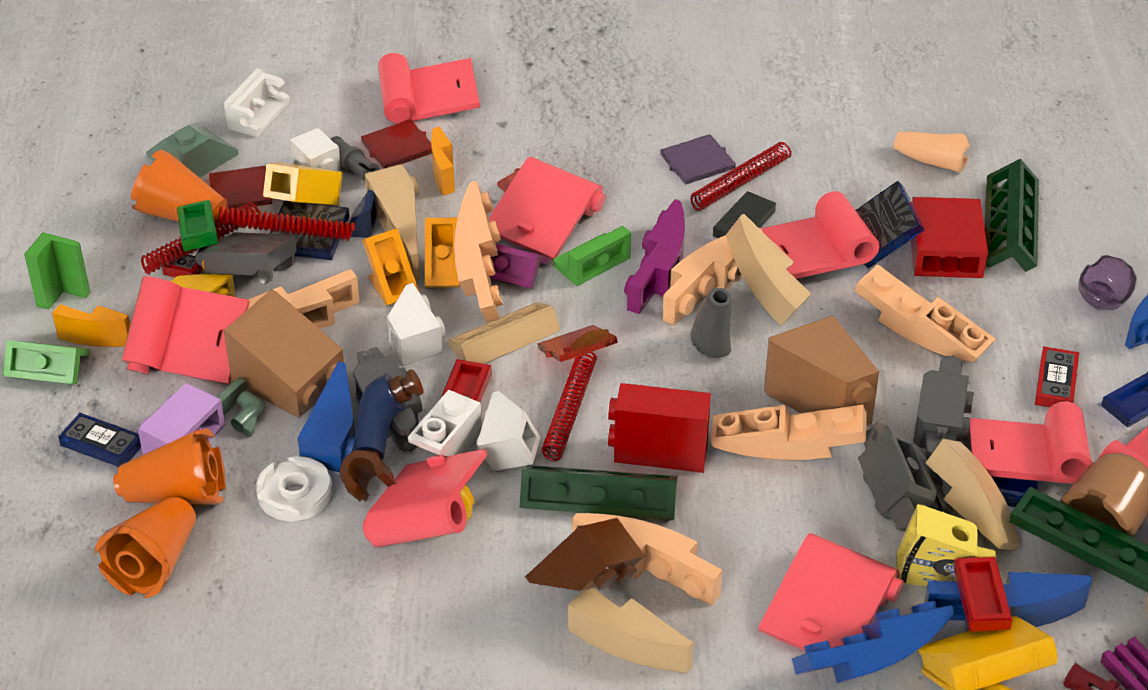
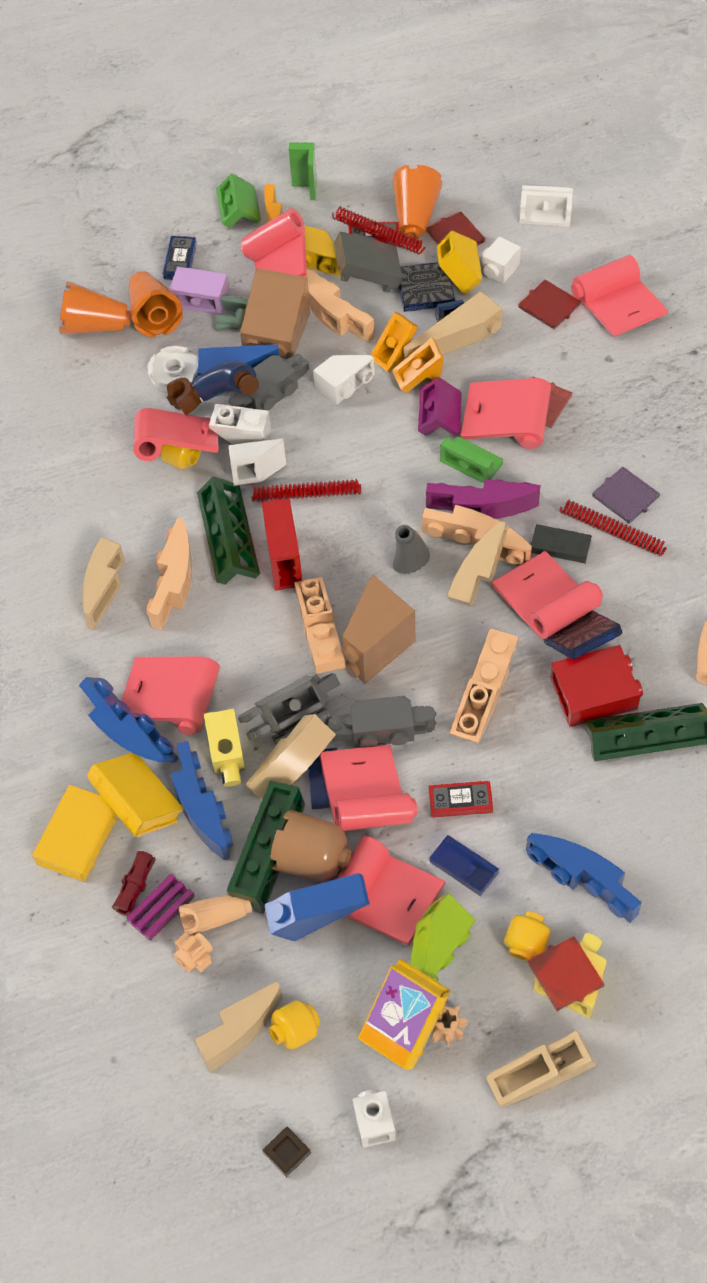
camera: 75 degrees right, 15 degrees up
(196, 149) = (478, 193): sand green slope -> none
(197, 225) = (376, 220): green tile -> none
(326, 228) = (400, 246): red piece -> none
(354, 159) = (511, 282): dark grey pin -> none
(442, 161) = (534, 330): light orange slope -> none
(469, 379) = (298, 427): red tile -> none
(474, 248) = (422, 375): light nougat slope -> none
(506, 334) = (365, 433): tan slope -> none
(577, 343) = (364, 475): clear red piece -> none
(590, 558) = (134, 535): reddish brown slope -> none
(982, 594) = (180, 775): red tile -> none
(1107, 283) = (581, 812): clear purple hair -> none

